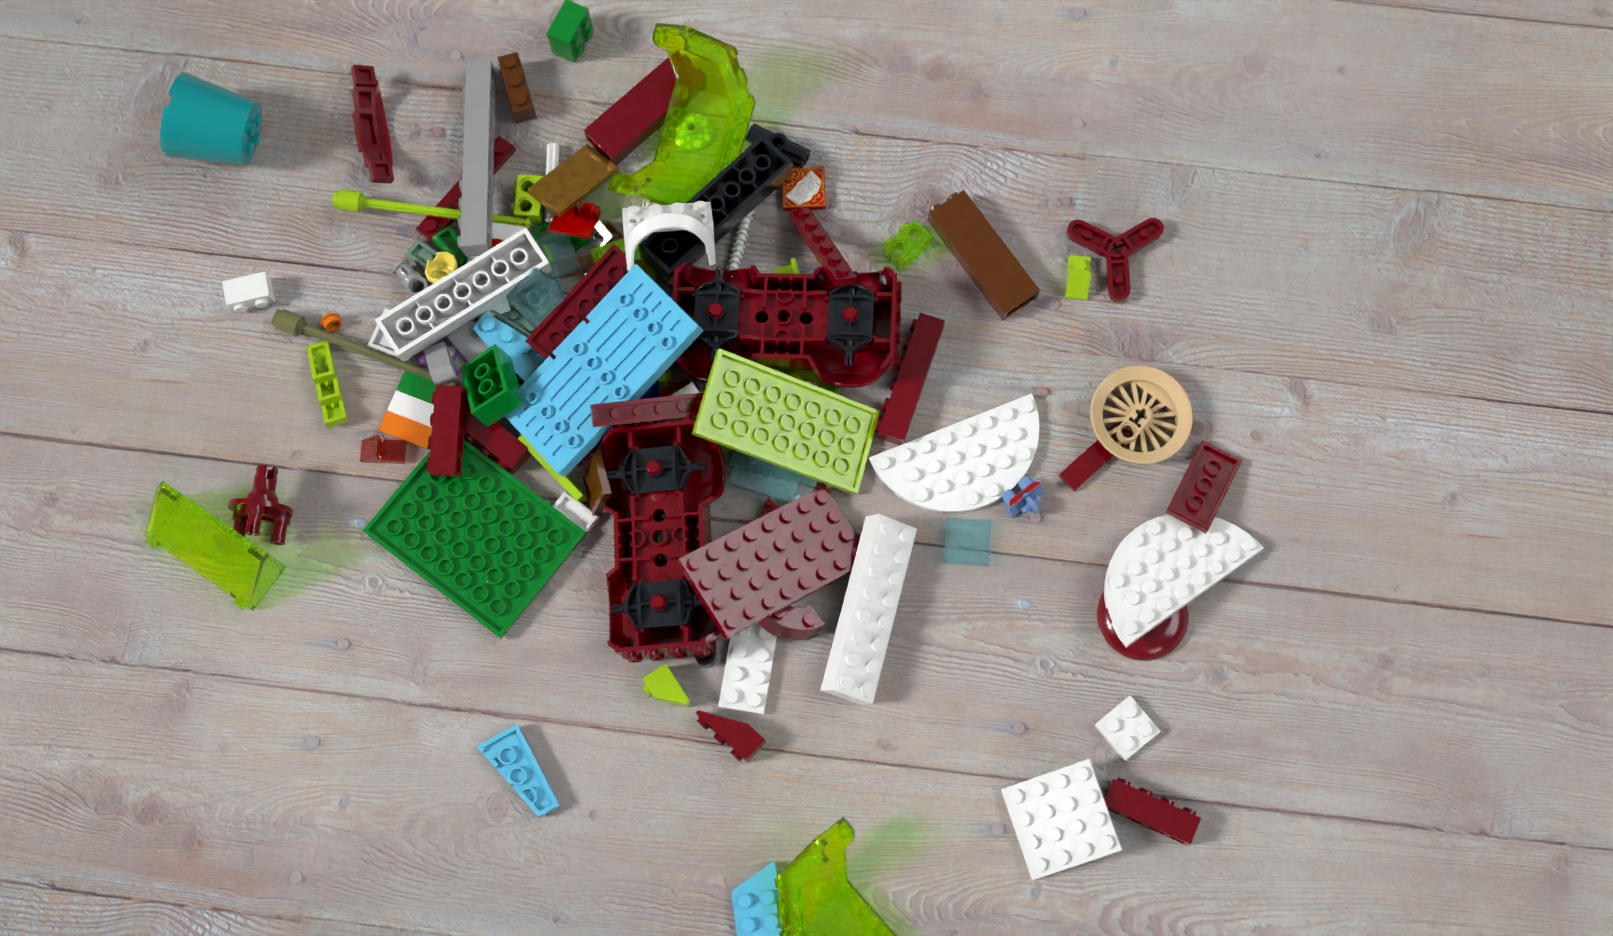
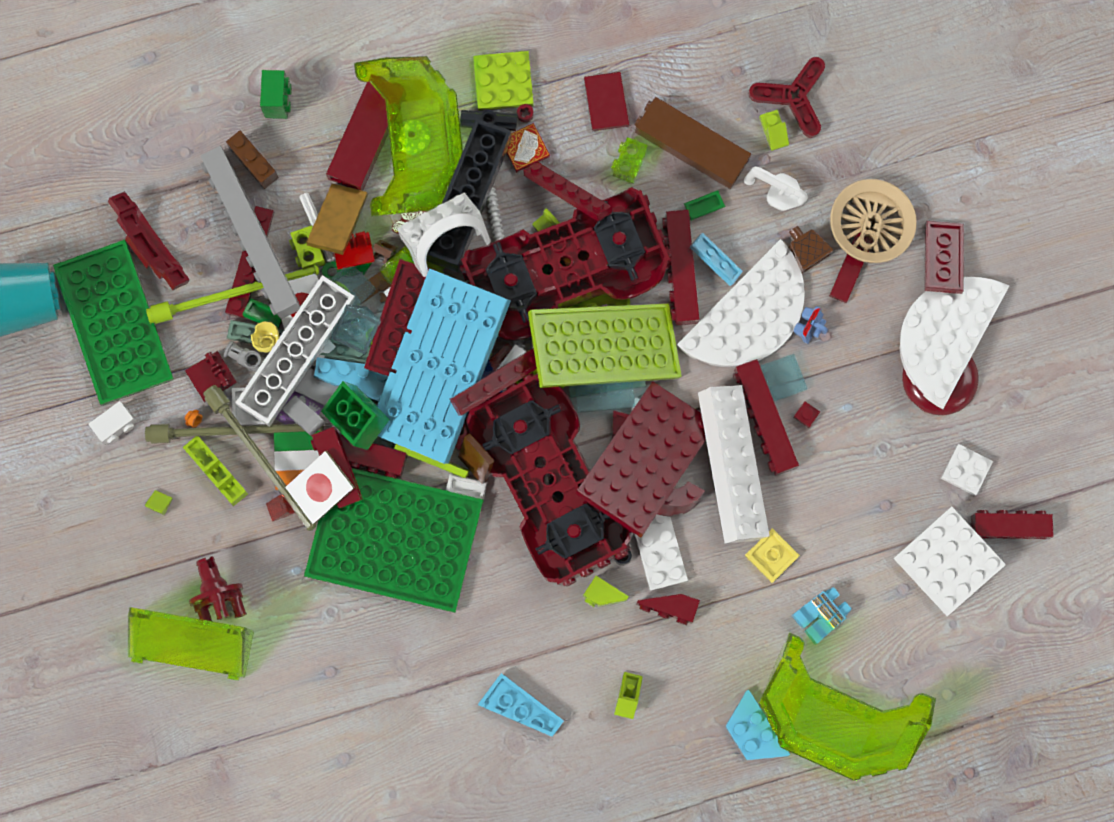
camera: 30 degrees left, 5 degrees up
(255, 392) = (158, 502): none -> lime slope
(293, 207) = (113, 323): none -> green plate
(370, 287) = (210, 372): none -> dark red hinge
(411, 444) = (312, 491): none -> flag
(641, 809) = (628, 695): none -> lime slope
(813, 112) = (503, 80): none -> lime plate
(821, 148) = (523, 108): none -> dark red bush
(868, 727) = (772, 555): none -> light yellow tile
(898, 813) = (828, 613): none -> medium azure hips
(911, 176) = (606, 101): none -> dark red tile
(929, 576) = (766, 418): none -> dark red brick
(951, 385) = (716, 259): none -> medium azure tile
(966, 324) = (704, 205): none -> green tile
(976, 592) = (806, 414): none -> dark red plate
(1057, 416) = (808, 248): none -> reddish brown torso
(1059, 345) = (784, 189): none -> white piece

